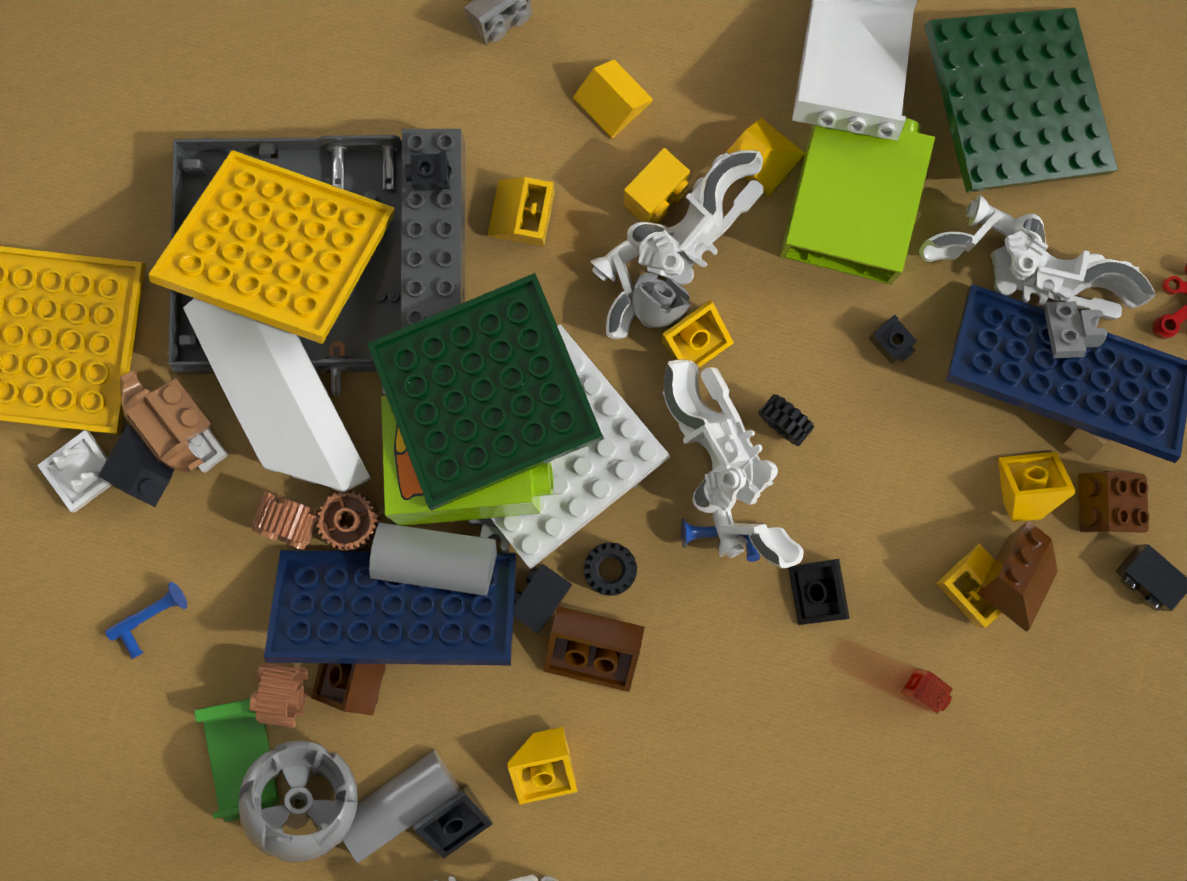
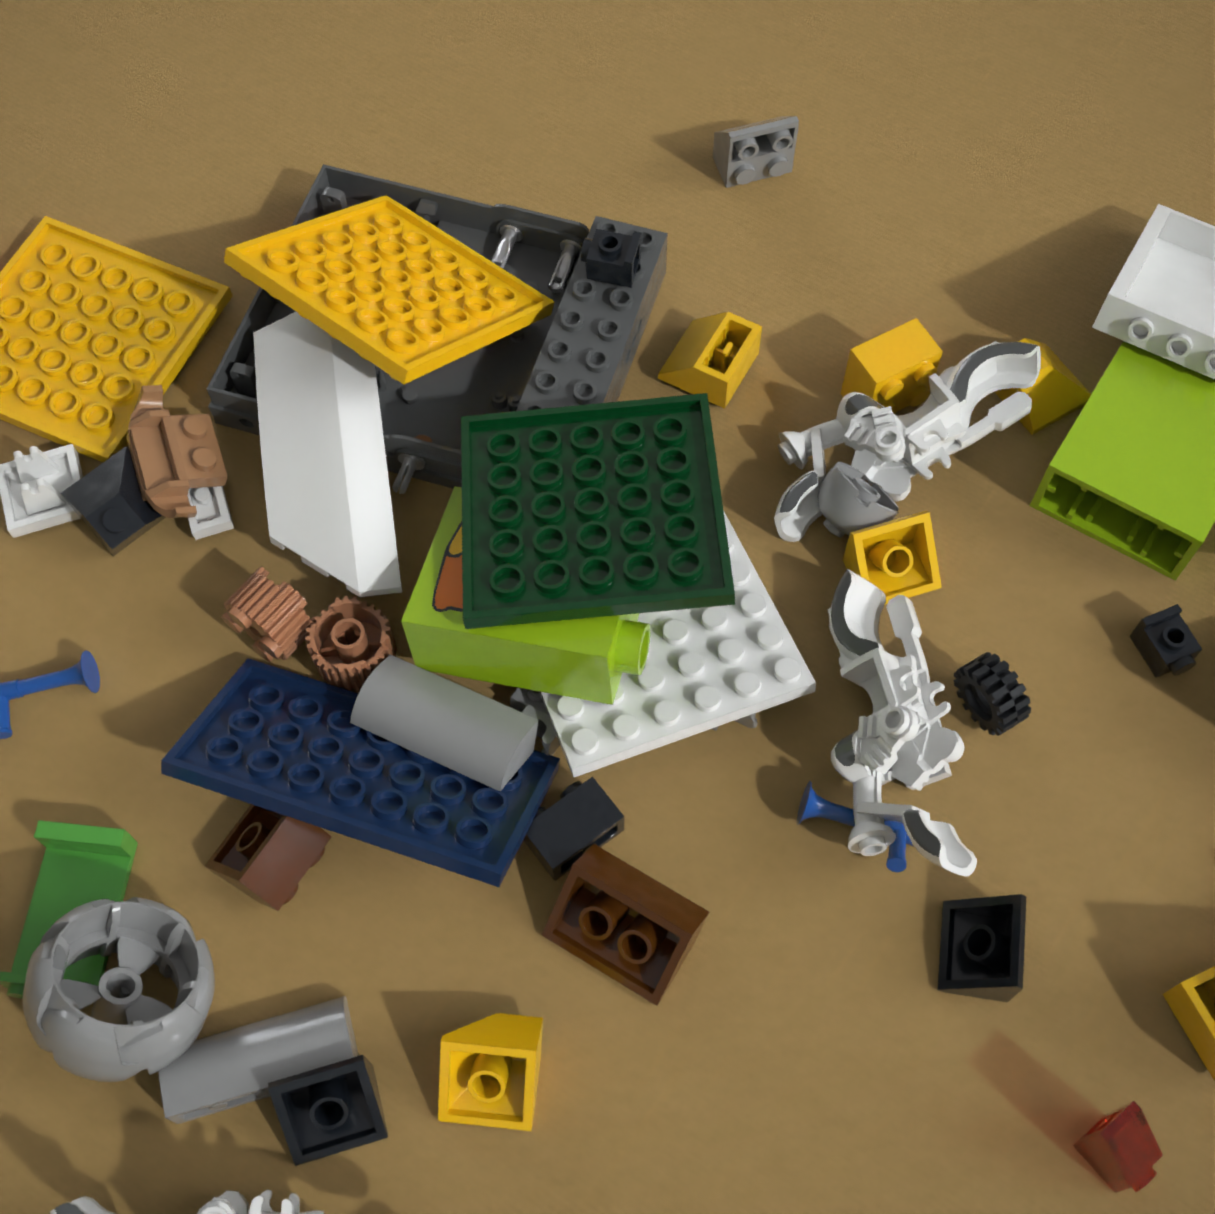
camera: 15 degrees right, 20 degrees down
(279, 694) = (162, 836): nougat brick -> none
(611, 97) = (860, 274): yellow slope -> none
(616, 551) = (692, 796): black tyre -> none

